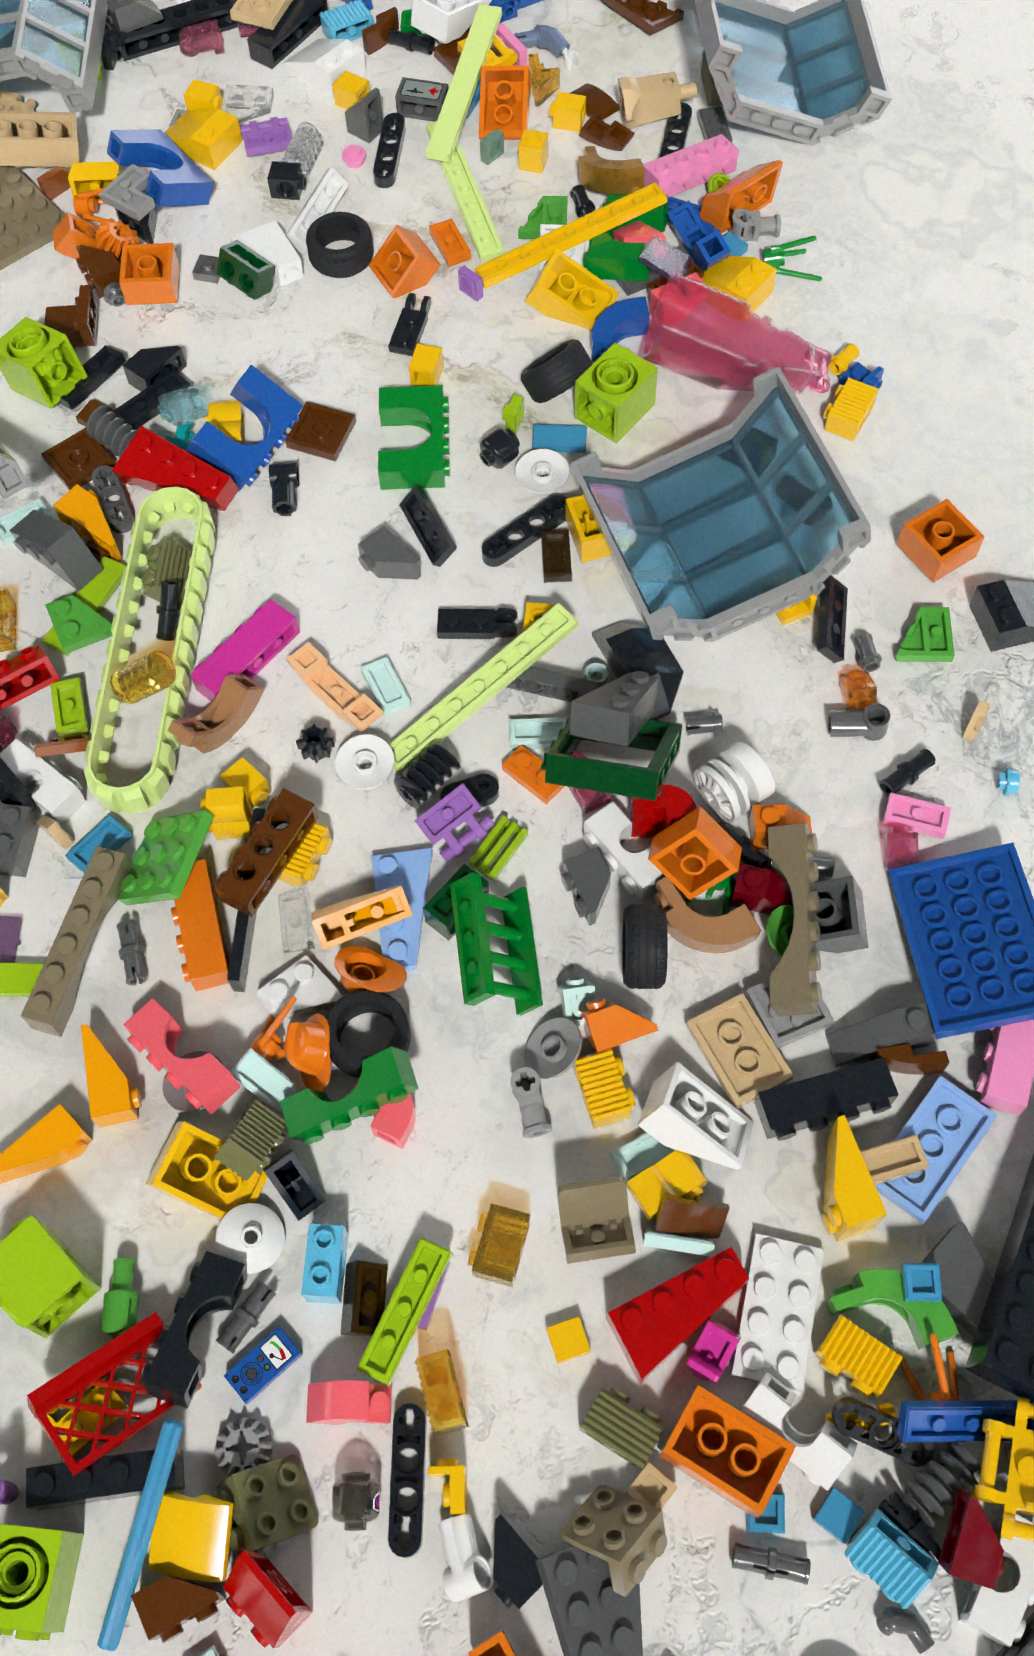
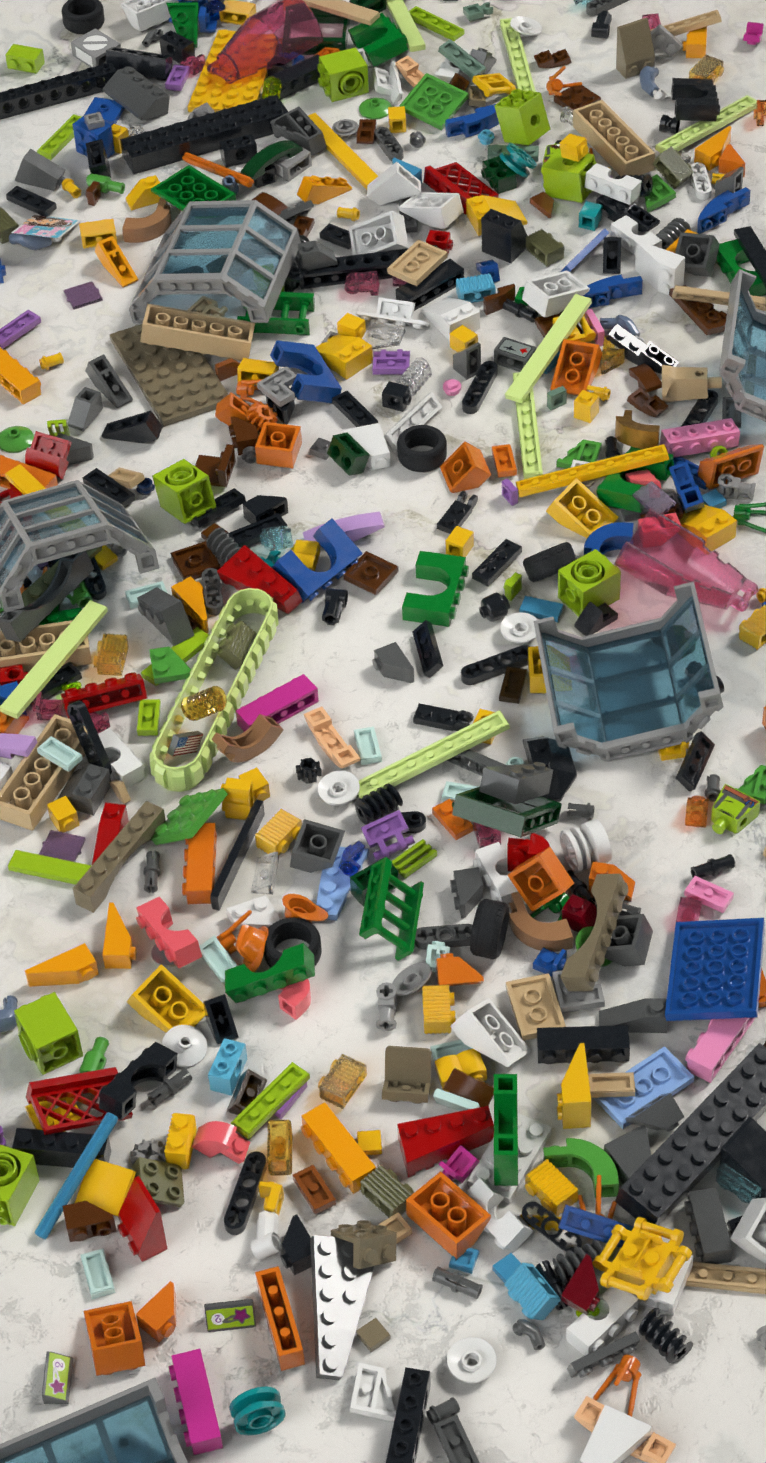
camera: 15 degrees right, 15 degrees down
(54, 893) = (112, 821): none -> red slope
(62, 745) = (138, 738): dark orange tile -> none
(107, 834) = (155, 797): dark azure tile -> none
(110, 81) = (287, 302): none -> green fence
(130, 741) = (185, 743): none -> tile
(168, 610) = (231, 668): black pin -> none
(235, 208) = (353, 409): none -> black plate
(249, 894) = (257, 824): reddish brown brick -> none
(251, 1140) = (200, 986): olive brick -> none
(253, 68) = (394, 311): none -> white bracket
(262, 1365) = (161, 1118): blue tile -> none
(282, 369) = (354, 526): none -> lavender slope
(286, 1415) = (180, 1140): none -> yellow brick
(355, 1500) = (210, 1192): clear smoke head -> none
(360, 863) = (316, 847): none -> dark grey slope
(360, 915) = (308, 875): light orange slope -> none
(412, 885) = (350, 857): none -> clear blue bracket
(482, 384) = (497, 562): none -> black plate
(510, 1449) = (314, 1189): none -> dark orange plate
(528, 1366) = (337, 1146): none -> light orange brick
(549, 128) = (604, 393): none -> yellow pin
(568, 111) = (623, 382): yellow brick -> none
(578, 70) = (638, 352): none -> slope
(603, 963) = (428, 932): none -> dark grey beam
(634, 439) = (595, 618): none -> black slope
(737, 971) = (550, 961): none -> blue bracket
(792, 1345) = (505, 1130): none -> green arch
(857, 722) = (695, 829): dark grey piece -> none
(901, 1060) = (648, 1037): reddish brown slope -> none
(906, 681) = (733, 810): none -> lime torso
(921, 1282) = (603, 1149): dark azure tile -> none
(970, 1194) = (658, 1114): none -> dark grey slope

